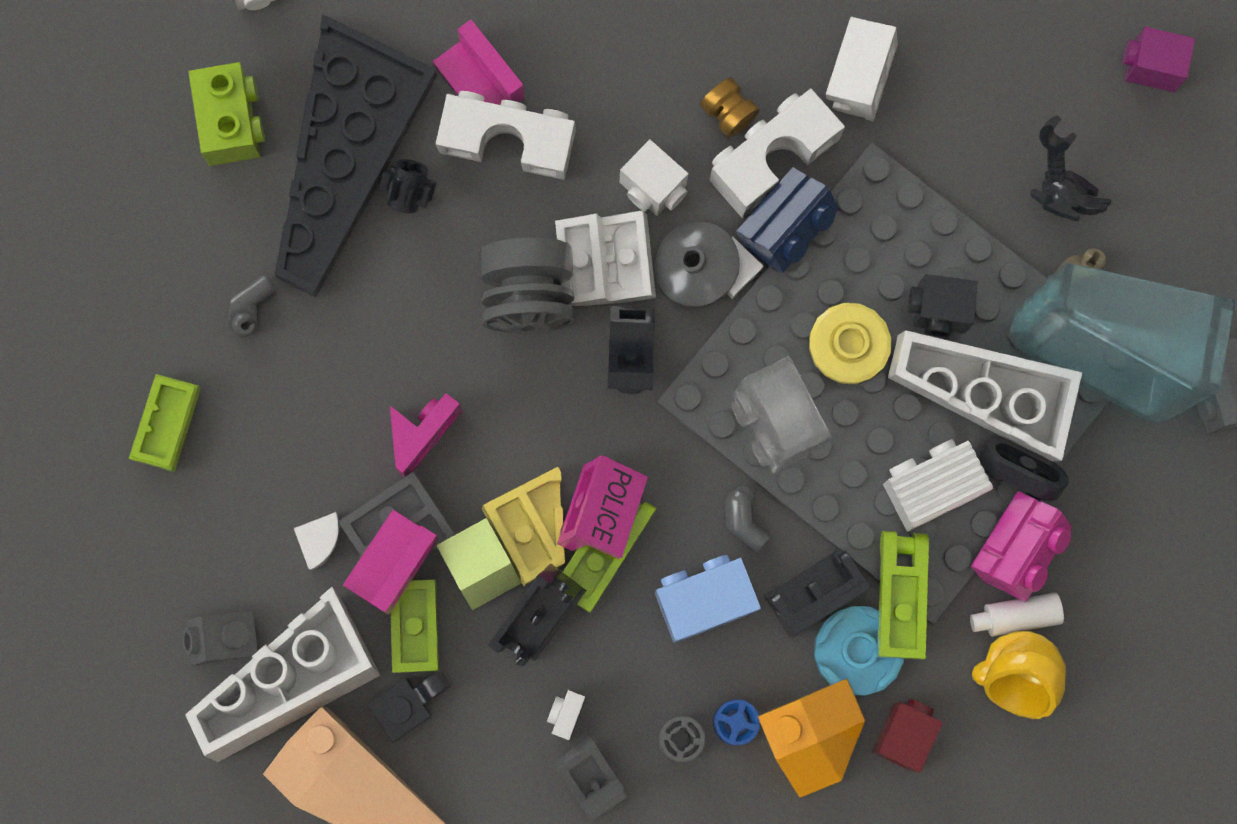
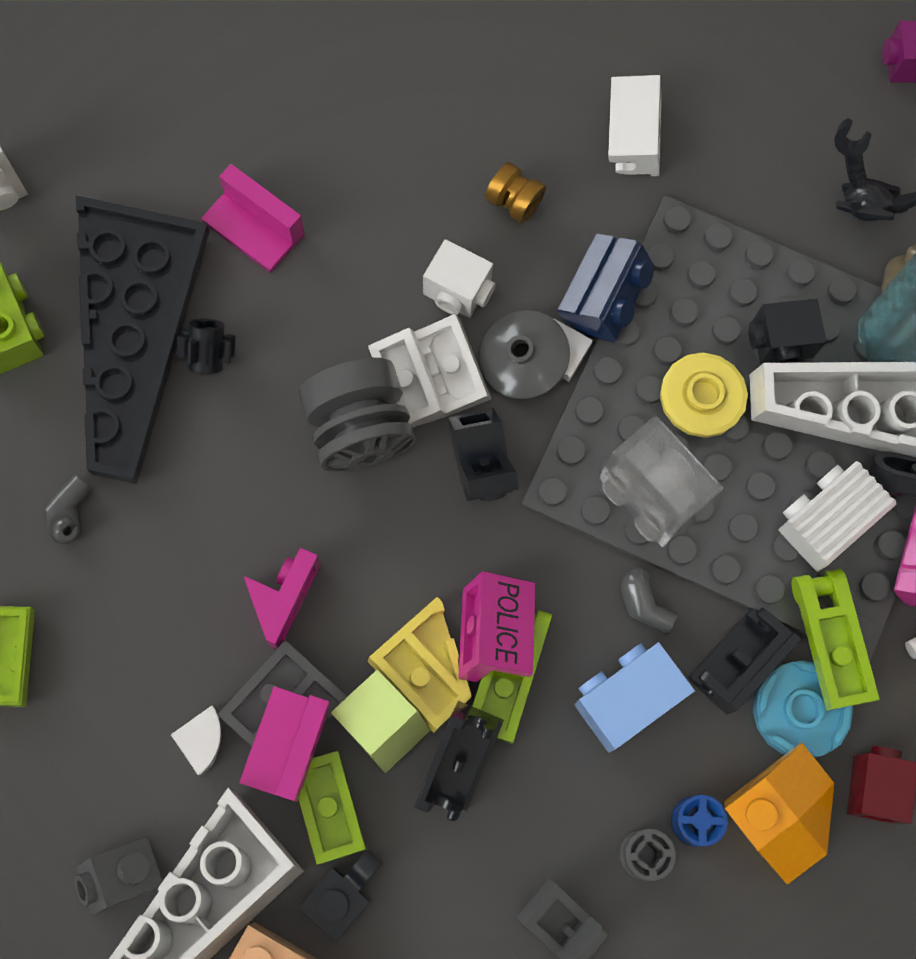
camera: 15 degrees left, 5 degrees down
(471, 123) = (258, 266): white arch -> none
(565, 714) = (516, 860): white plate -> none
(801, 127) = (593, 196): white arch -> none

